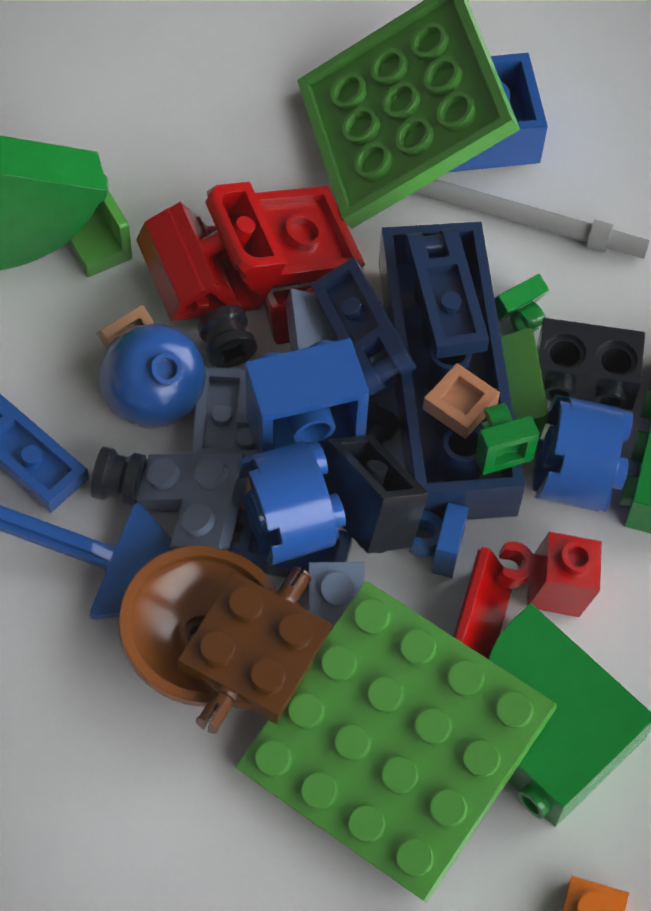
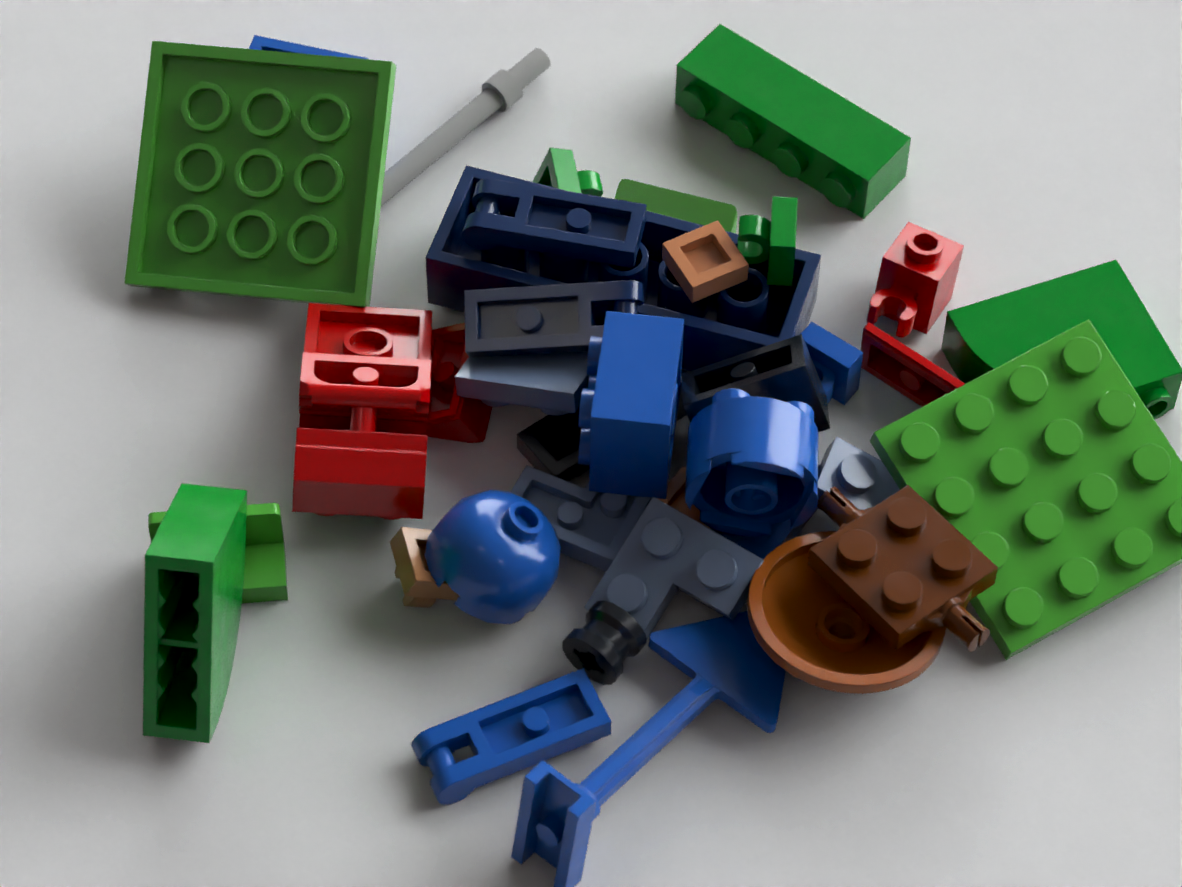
camera: 65 degrees left, 5 degrees down
(227, 337) = (464, 472): black wheel -> none
(581, 454) = (798, 169): blue brick -> none
(589, 354) = (674, 148): black brick -> none

